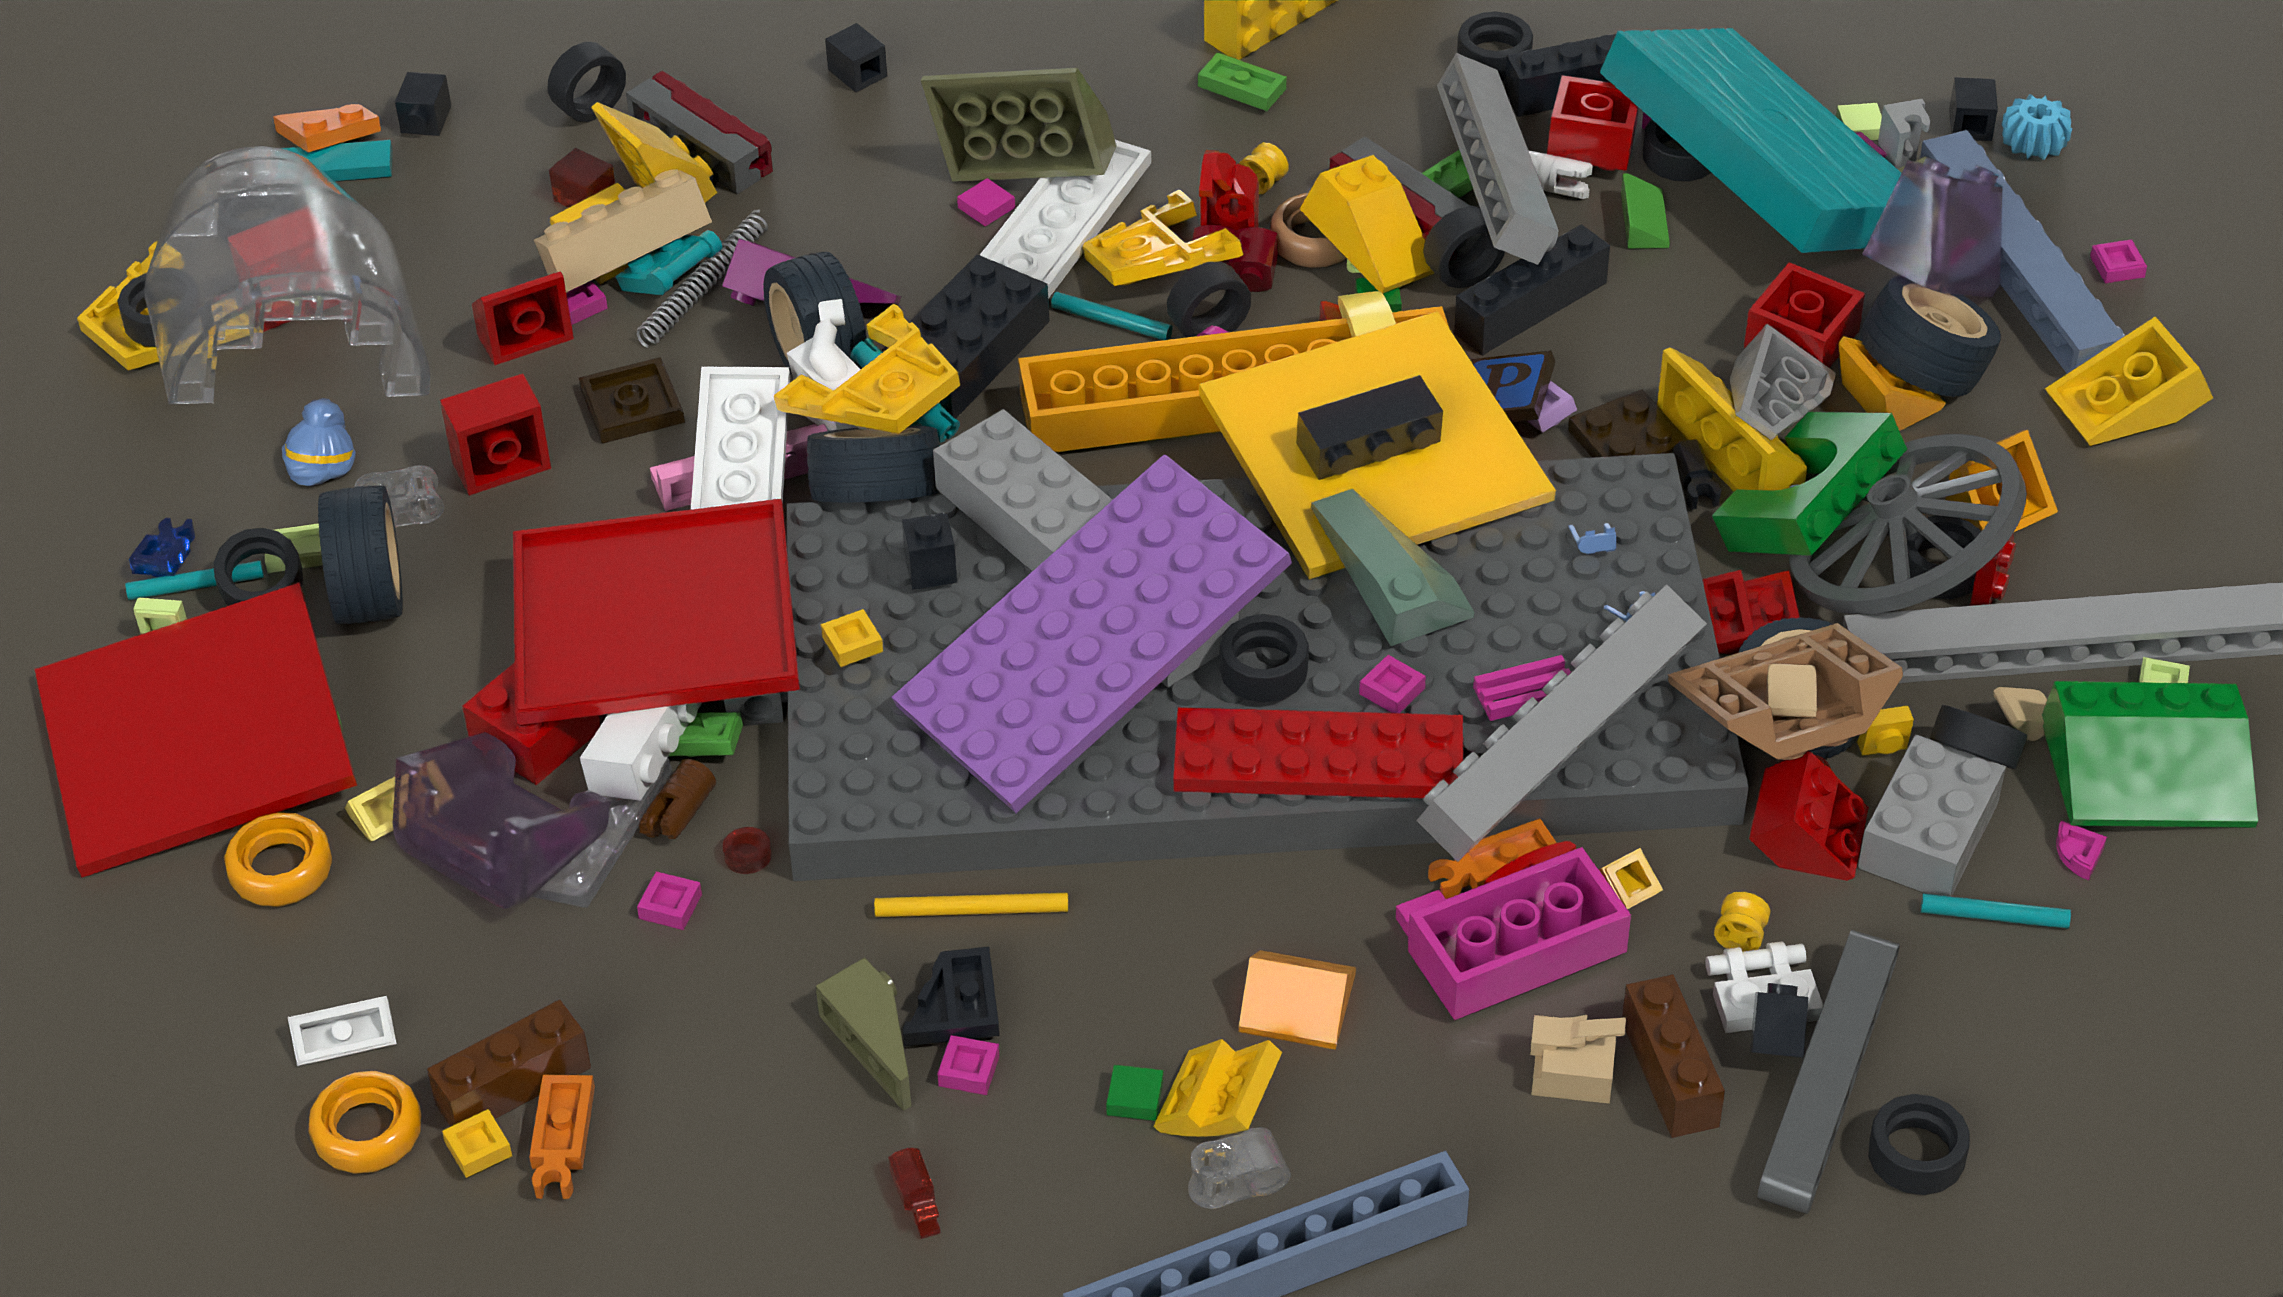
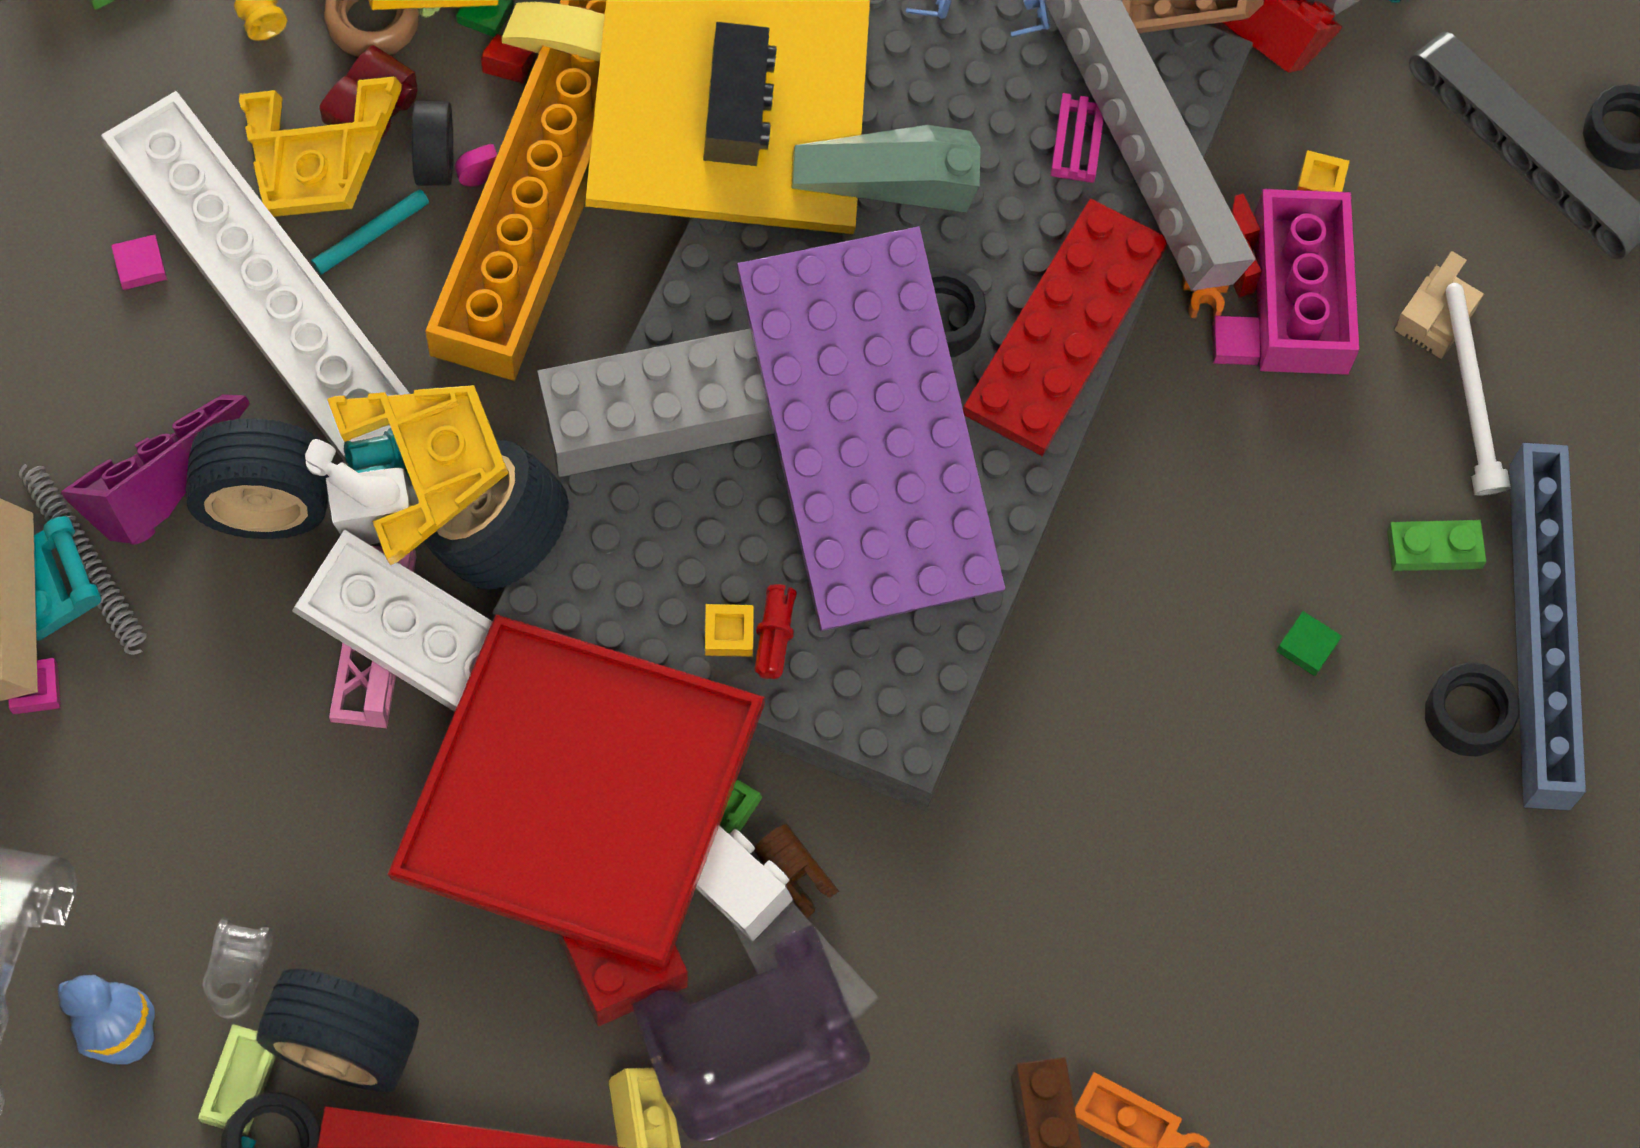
camera: 70 degrees left, 20 degrees up
(496, 434) = (219, 837): red brick -> none
(524, 318) = (43, 746): red slope -> none
(631, 400) = (216, 695): dark brown tile -> none
(669, 900) = (903, 925): dark pink tile -> none
(747, 850) = (876, 834): clear red tile -> none
(864, 1016) = (1146, 815): olive slope -> none
(869, 668) = (774, 631): none -> red axle
(915, 1189) = (1337, 858): clear red bar -> none
(929, 551) = (663, 516): black brick -> none
(956, 1000) = (1147, 735): black wing -> none
(968, 1065) = (1216, 758): dark pink tile -> none
(971, 904) = (1038, 678): yellow bar -> none
(982, 324) = (348, 338): black brick -> none
(1019, 124) = (111, 182): olive slope -> none
(1134, 1210) = (1485, 679): none -> black tyre
(1218, 1089) = (1349, 578): yellow slope -> none
(1227, 192) = (312, 62): red piece -> none
(1241, 1164) = (1432, 604): clear piece -> none
(1295, 999) = (1269, 472): light orange slope -> none
(1311, 1155) = (1436, 545): none -> bright green plate
(1392, 684) = (1019, 232): dark pink tile -> none
(1498, 1100) = (1489, 474): none -> white piece
(1632, 878) = (1262, 172): yellow slope -> none
(1657, 916) = (1322, 173): none -> yellow plate
(1673, 1056) = (1491, 242): reddish brown brick -> none
(1737, 995) = (1435, 150): white plate -> none
(1742, 921) = (1361, 123): yellow wheel -> none
(1779, 1021) = (1484, 153): black brick -> none

